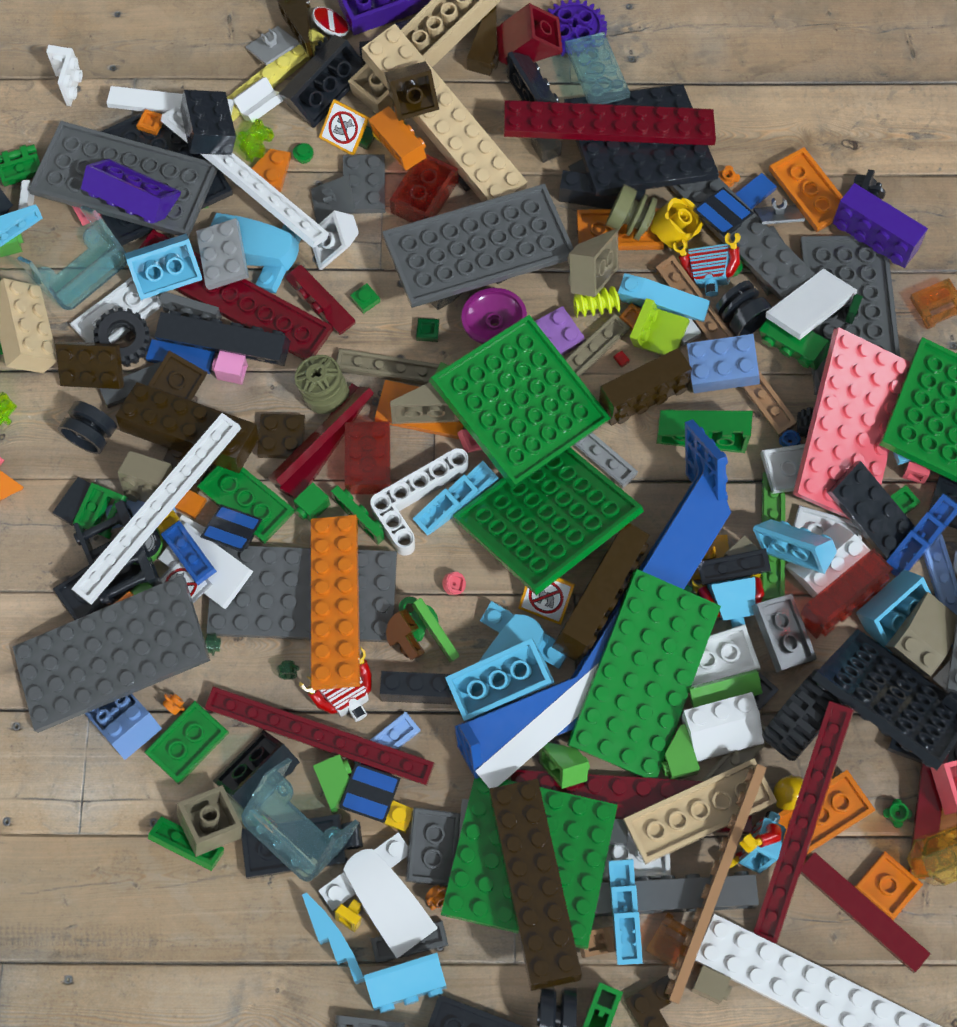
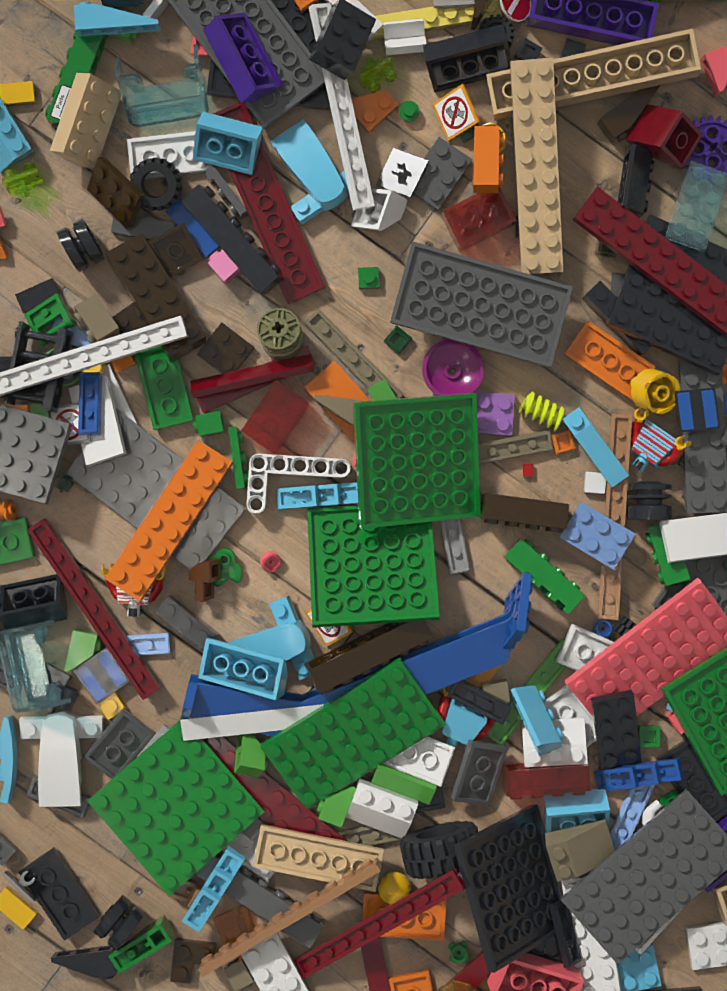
camera: 35 degrees right, 20 degrees up
(222, 254) = (280, 164): light grey plate -> none
(231, 528) = (134, 406): piece -> none
(287, 670) = (106, 542): clear green plate -> none
(320, 299) = (332, 252): dark red bracket -> none
(349, 916) = (28, 751): yellow tile -> none
(405, 983) = (34, 825): medium azure slope -> none
(412, 90) = (522, 132): dark brown slope -> none
(435, 630) = (229, 590): bright green tile -> none
(435, 897) = (97, 781): orange plate -> none
(535, 885) = (160, 832): dark brown brick -> none
(593, 264) = (560, 383): dark tan slope -> none
(631, 212) = (624, 364): olive wheel -> none
(658, 329) = (572, 471): lime bracket -> none
(762, 844) = (345, 911): torso -> none

